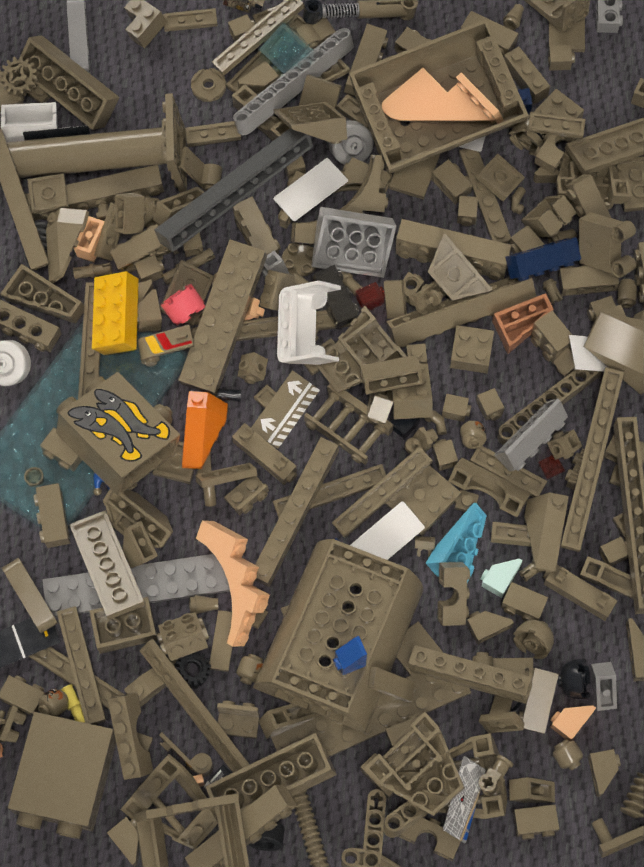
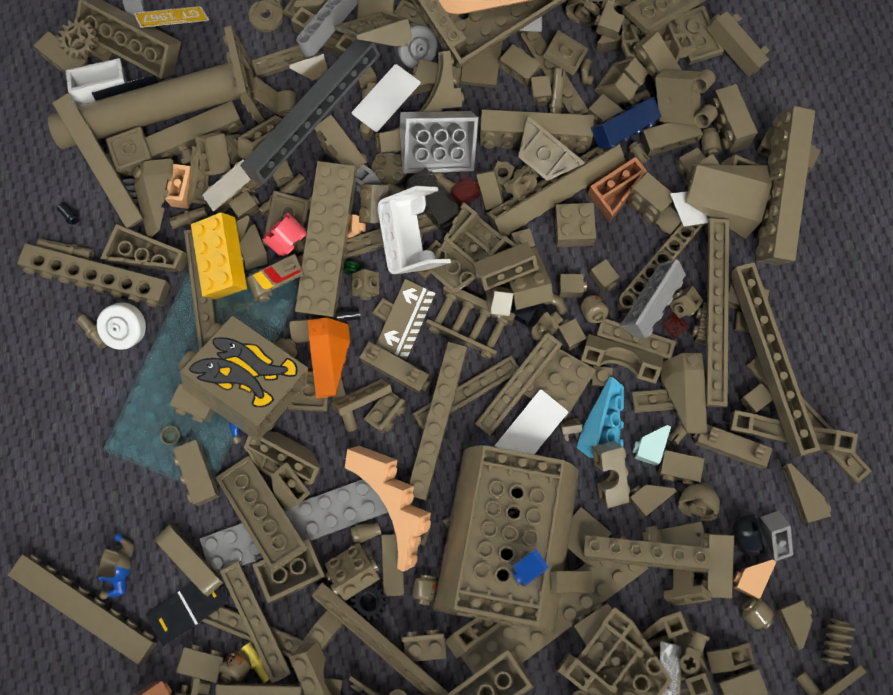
camera: 10 degrees left, 5 degrees up
(114, 70) = (170, 16): none -> yellow sticker
(178, 401) = (299, 331): none -> dark tan slope
(242, 145) = (310, 67): none -> dark tan slope
(242, 349) = (351, 267): none -> dark green bush
(483, 215) = (557, 91): none -> dark tan pin

